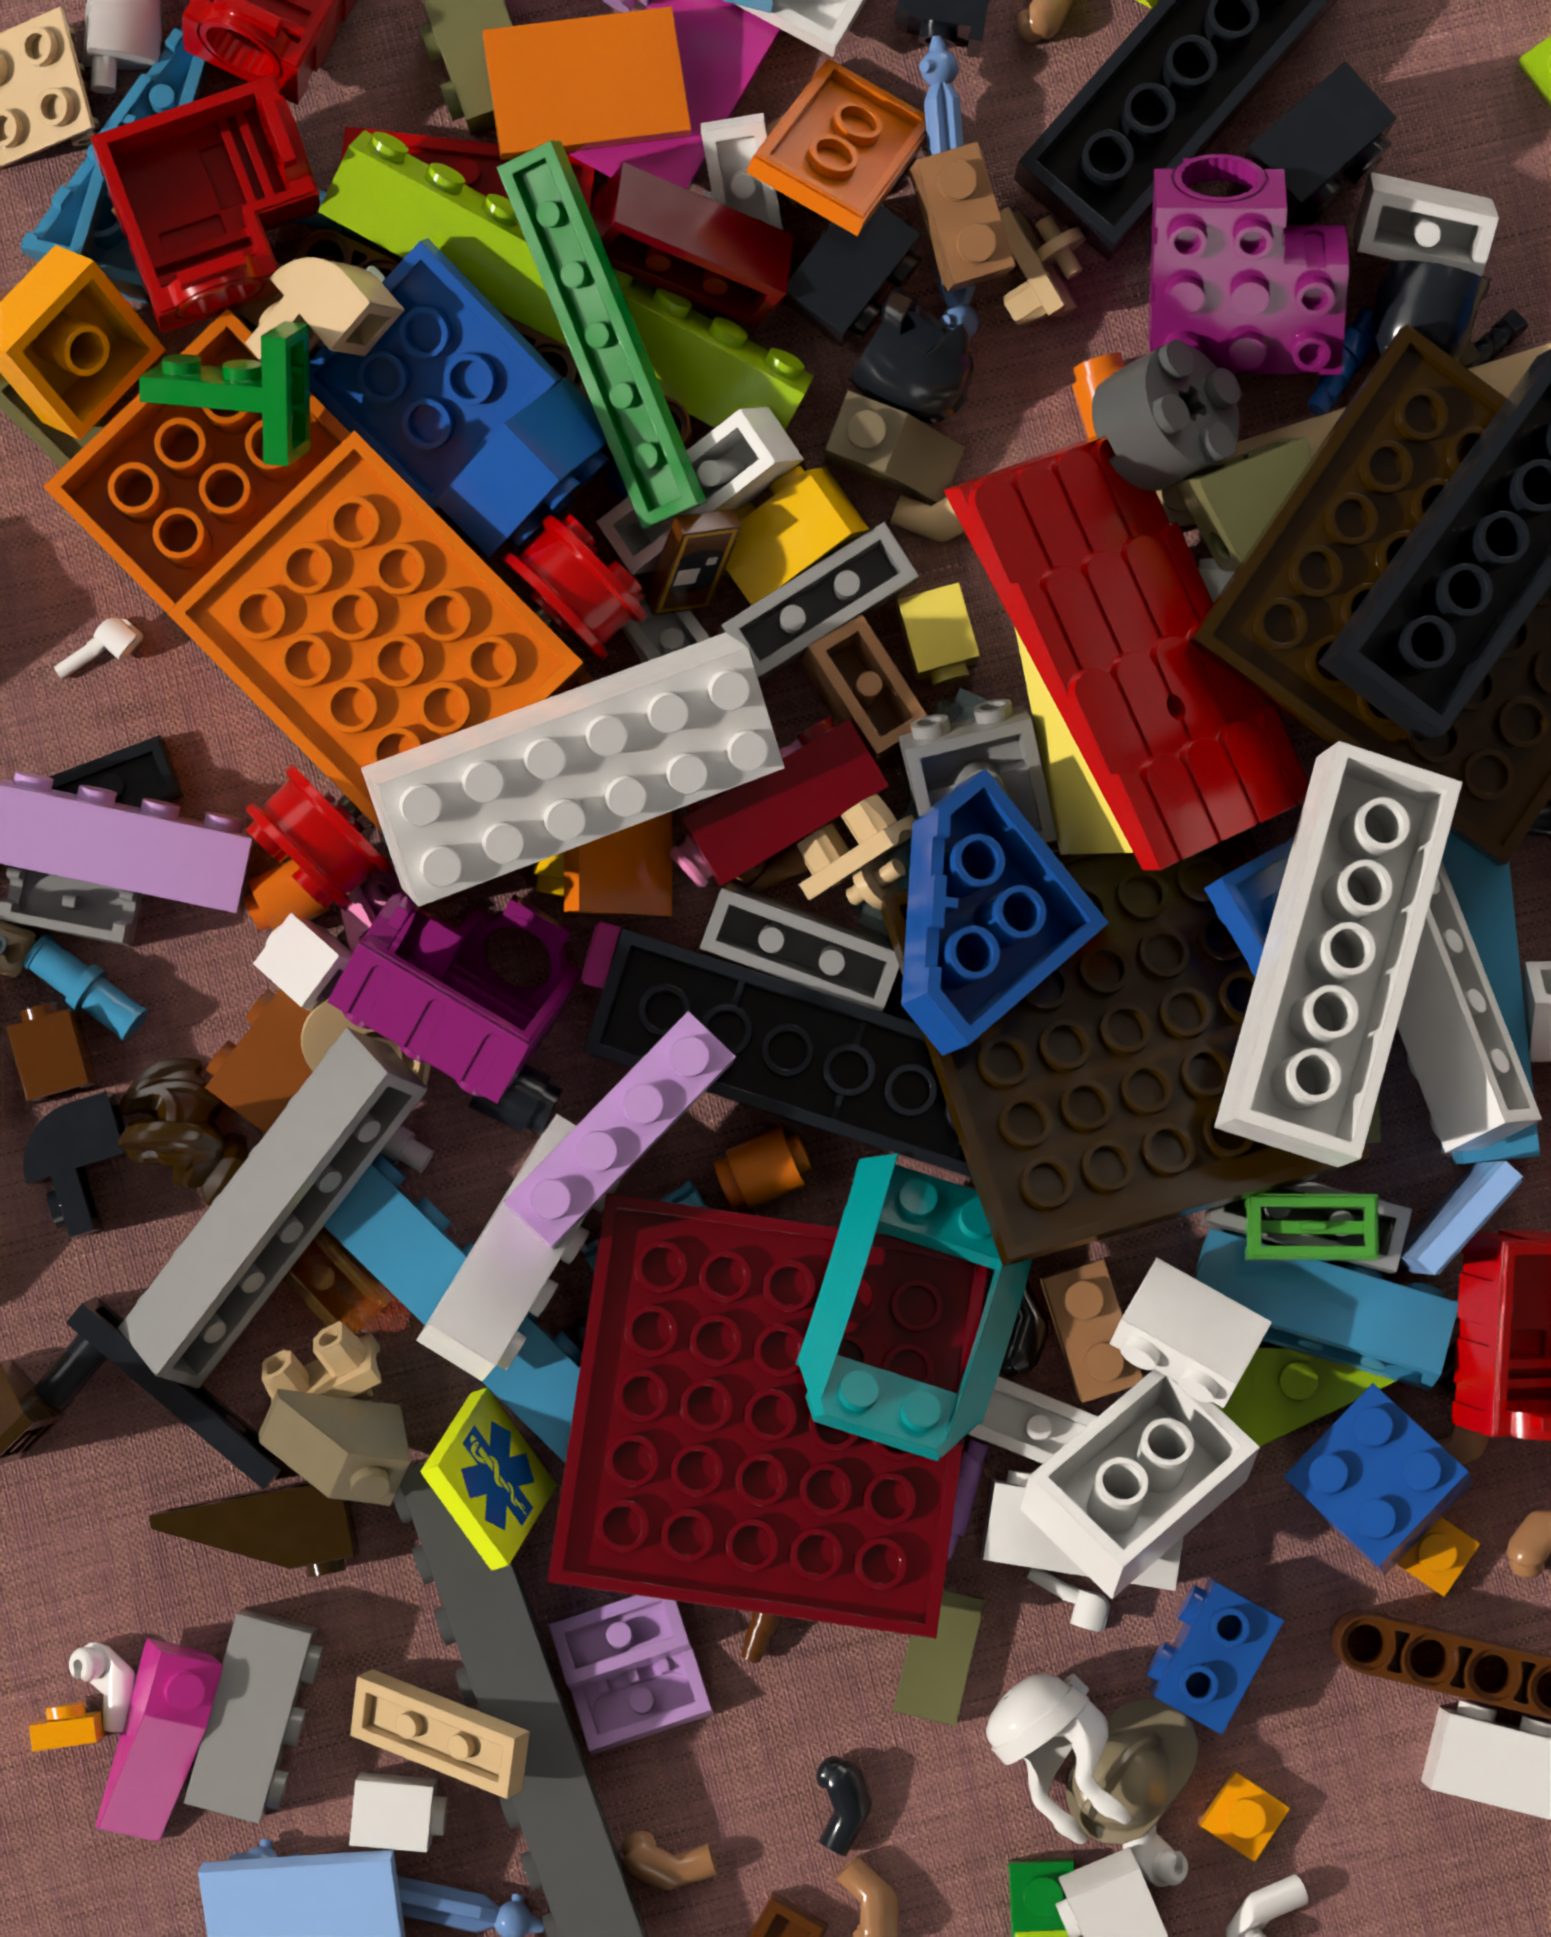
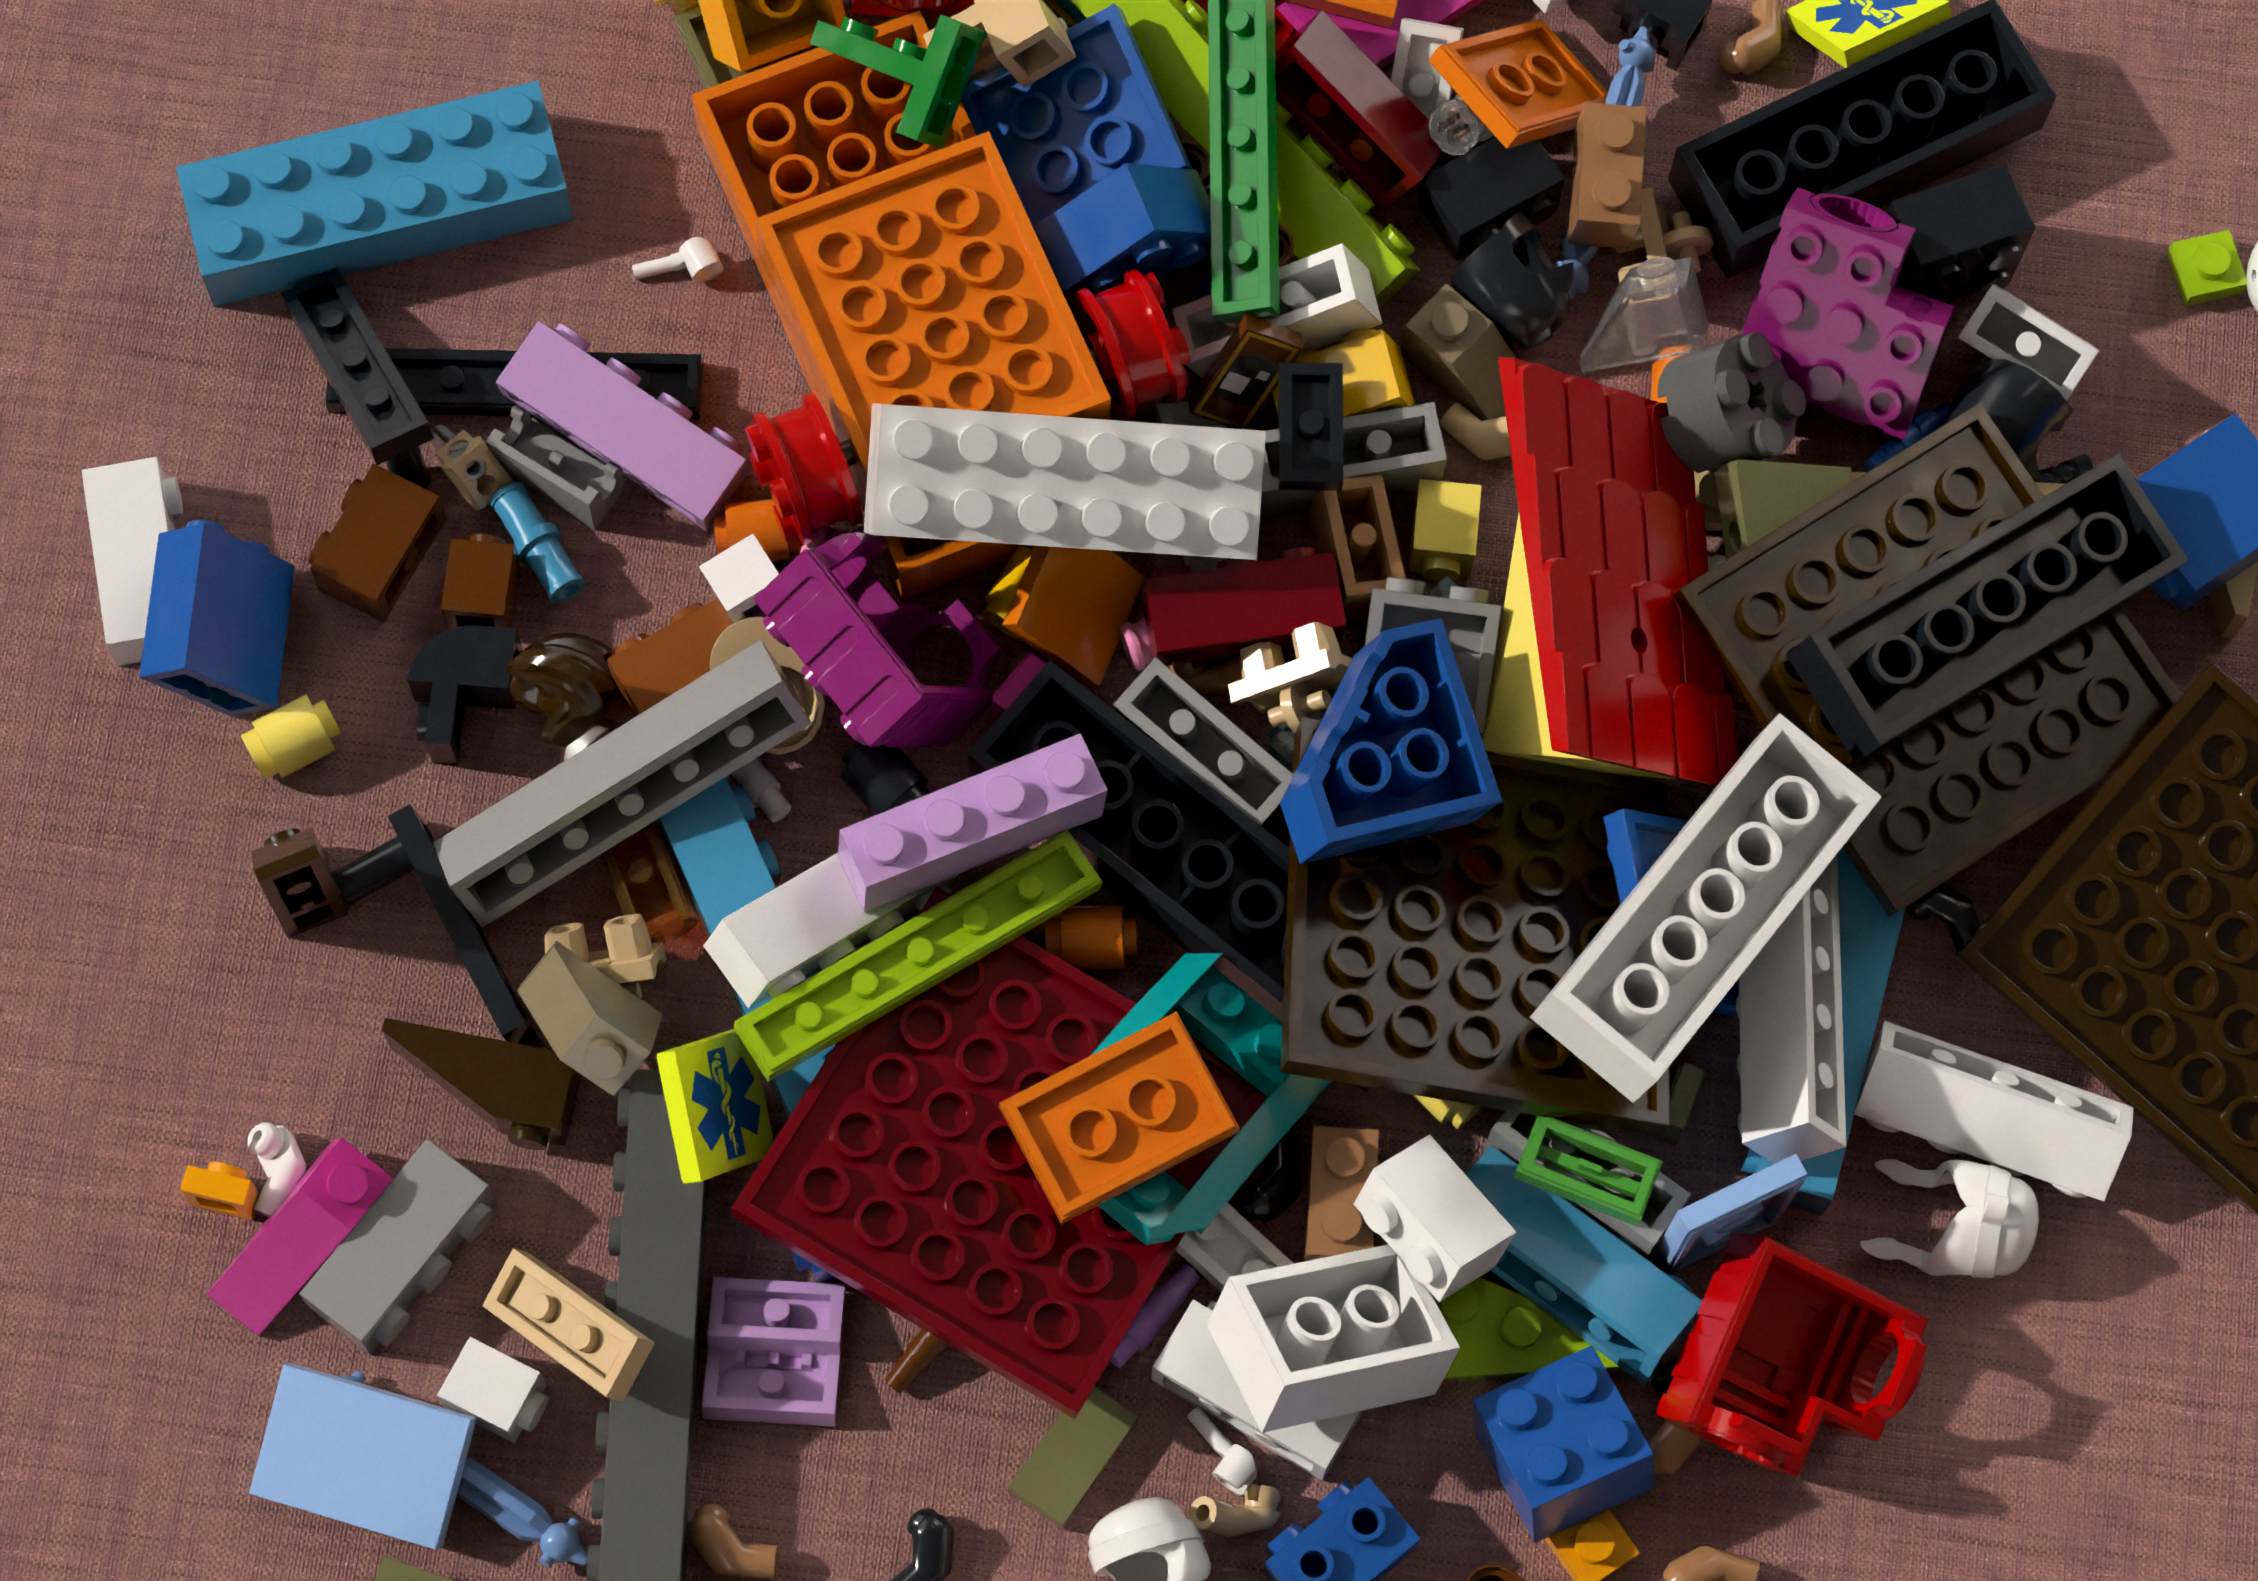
camera: 20 degrees right, 15 degrees down
(618, 1270) = (917, 955): none -> lime tile
(779, 600) = (1310, 426): none -> black plate
(790, 224) = (1457, 127): none -> clear bush
(870, 1364) = (1119, 1117): none -> orange tile
(1052, 347) = (1648, 317): none -> clear slope
(1110, 1655) = (1235, 1520): none -> tan arm

